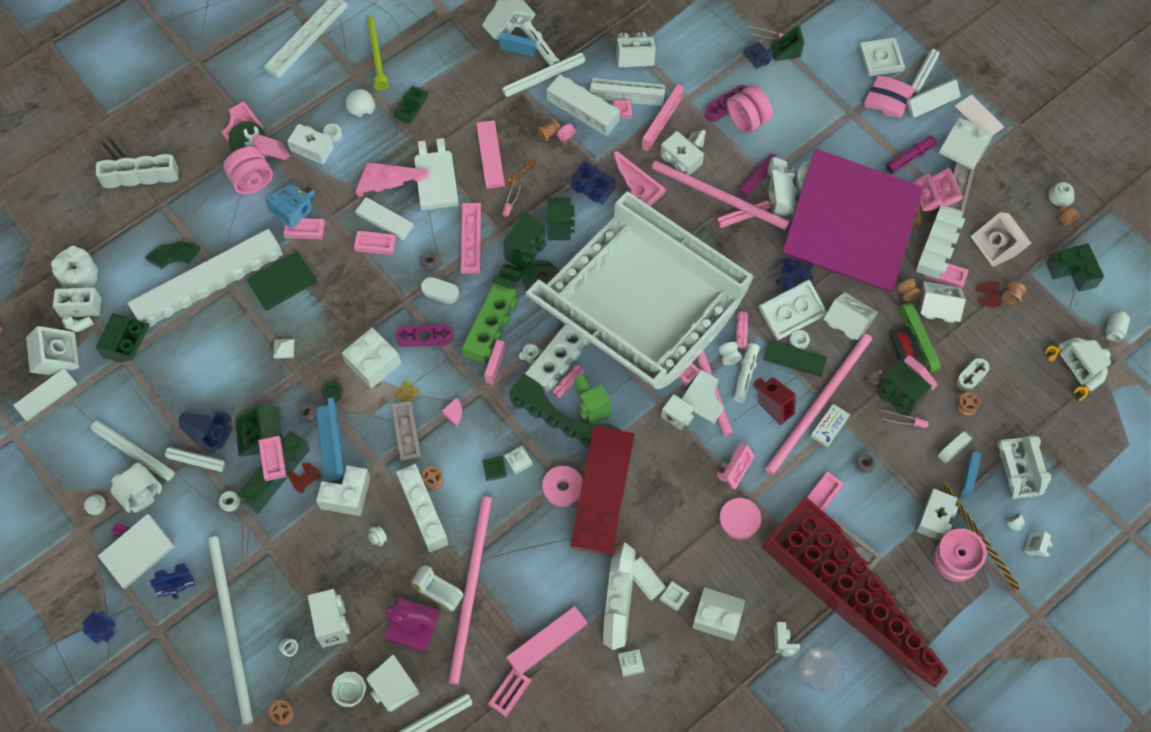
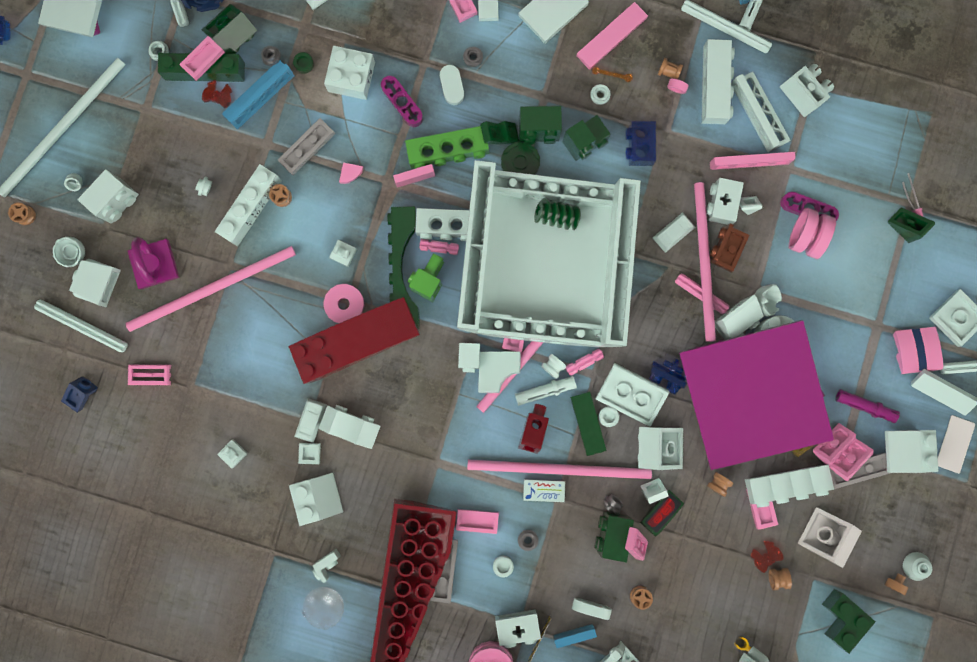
camera: 55 degrees right, 20 degrees up
(172, 583) = (62, 59): clear blue hips -> none
(346, 497) = (222, 141): light aqua brick -> none
(407, 387) = (335, 120): clear yellow plate -> none
(436, 588) = (189, 263): light aqua animal -> none
(471, 238) = (519, 76): bright pink tile -> none
(494, 468) = (323, 238): dark green tile -> none
(508, 207) = (568, 87): bright pink piece -> none
(530, 184) = (604, 90): none -> light aqua plate
(530, 348) = (447, 195): light aqua plate -> none
(547, 641) = (205, 377): bright pink tile -> none
(608, 270) = (558, 213): none -> dark green piece
(619, 597) = (277, 410): light aqua brick -> none
(624, 107) = (740, 118): bright pink tile -> none
(637, 181) = (667, 189): bright pink wing -> none
(667, 548) = (349, 427): none -> light aqua brick
(680, 205) = (673, 232): none -> light aqua tile
(720, 173) = (729, 248): none -> copper bracket
(737, 467) = (457, 436): bright pink plate -> none
(740, 518) = (410, 465): bright pink tile -> none
(756, 177) = (748, 281): magenta axle -> none
(758, 55) = (882, 204): dark blue bracket -> none
(875, 497) = (503, 566): none -> light aqua tile
(883, 340) = (654, 491): none -> light aqua plate
(918, 422) = (596, 563): piece -> none
(926, 349) = (676, 524): bright green beam -> none
(941, 302) = (729, 519): light aqua slope -> none
(969, 372) = (674, 580): light aqua beam -> none

